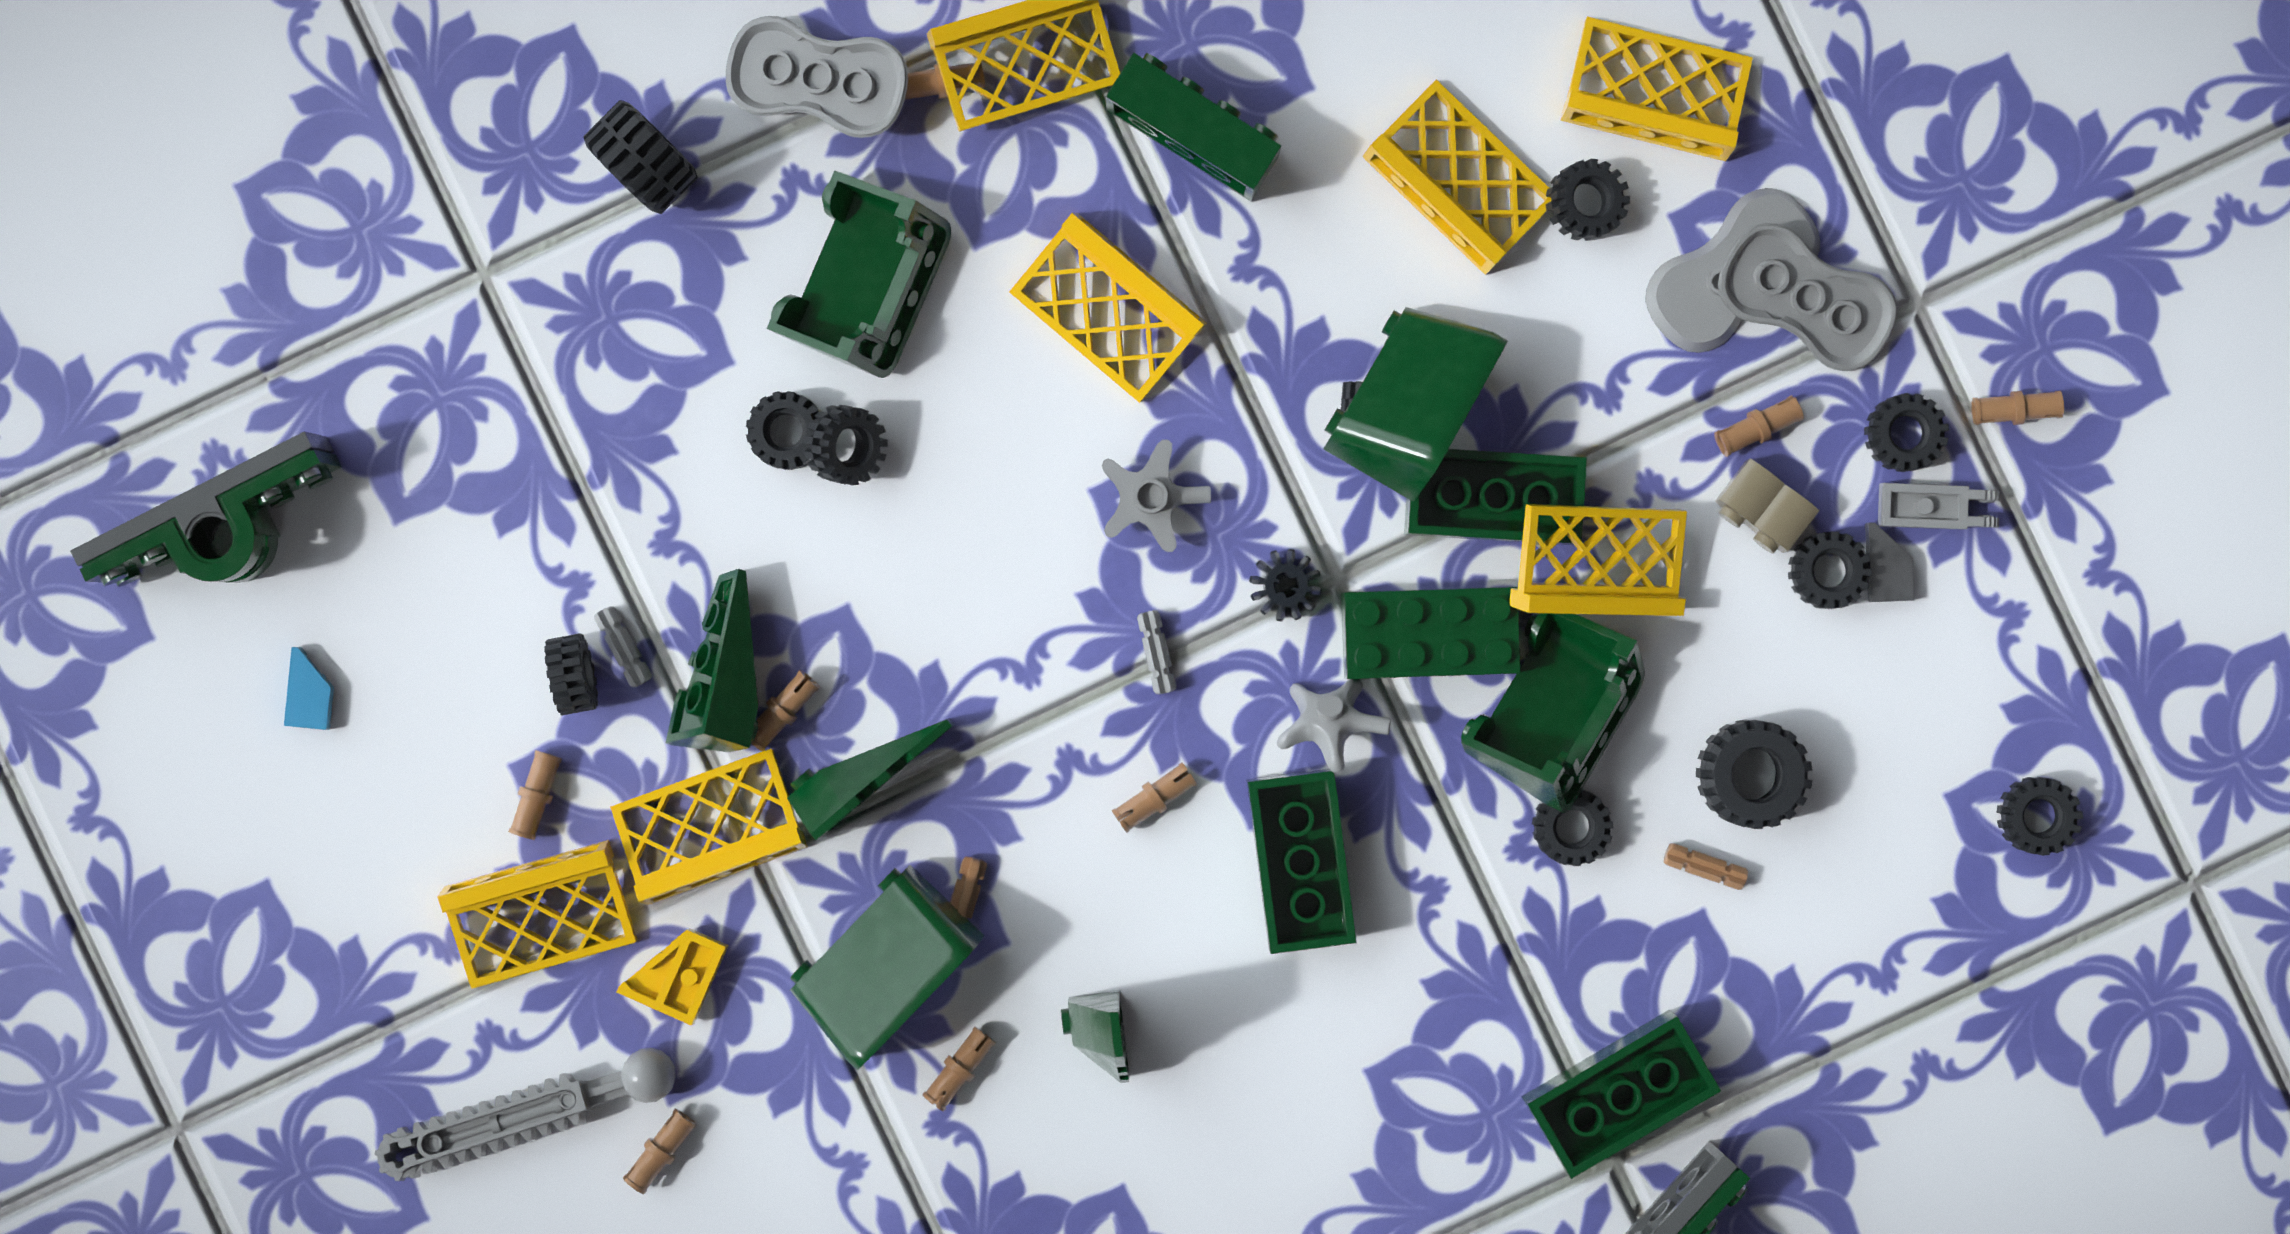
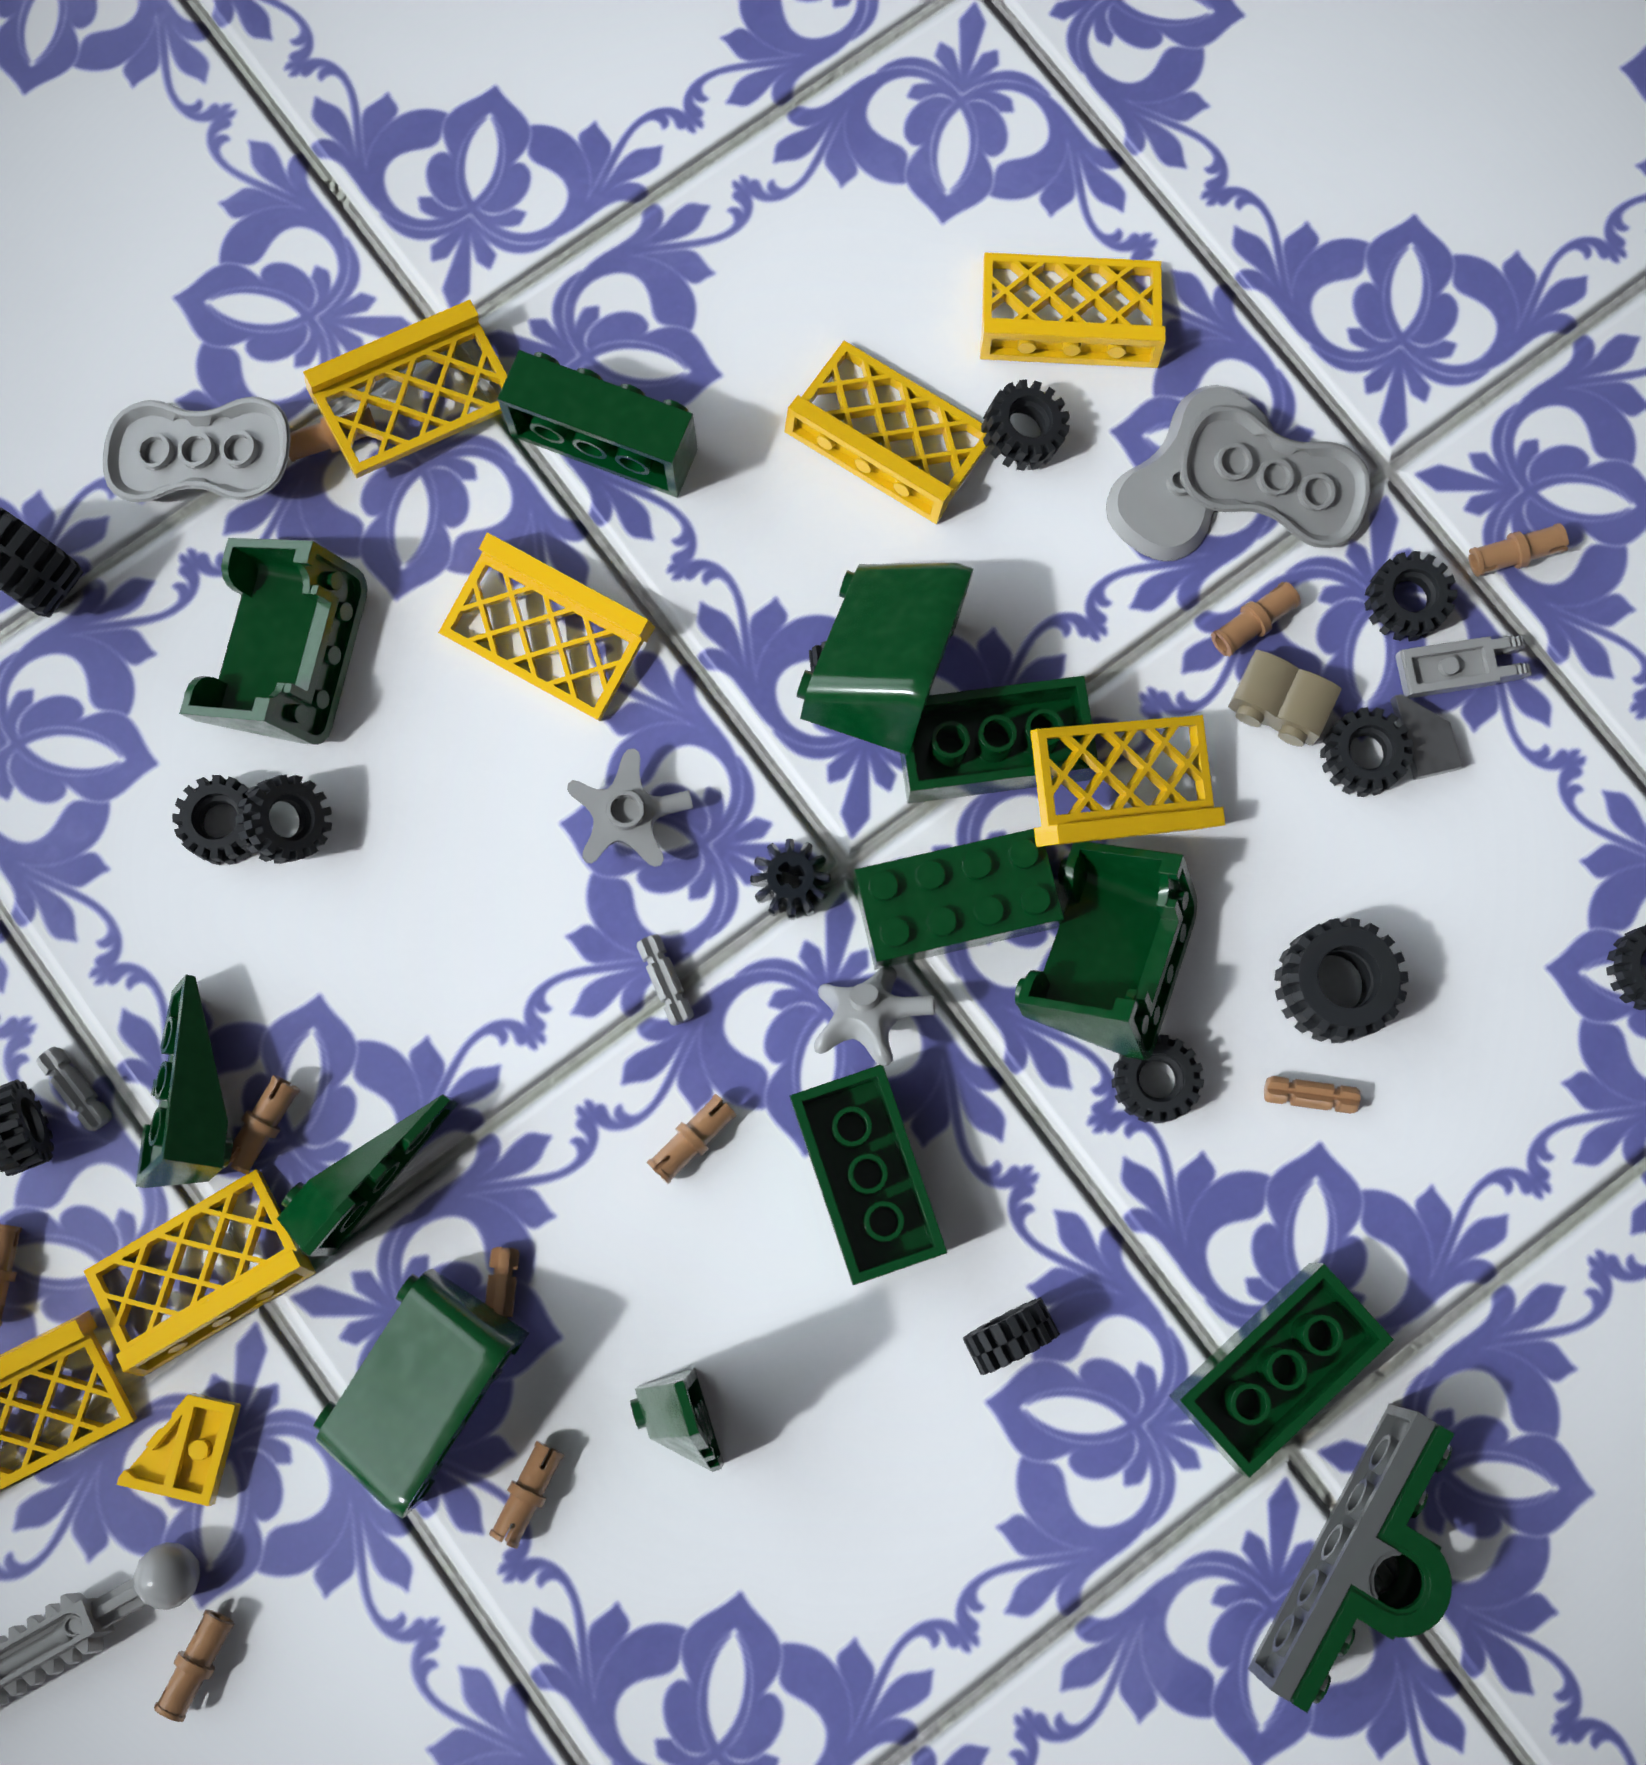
camera: 10 degrees left, 10 degrees down
(1396, 1022) = (1011, 1336): none -> black tyre

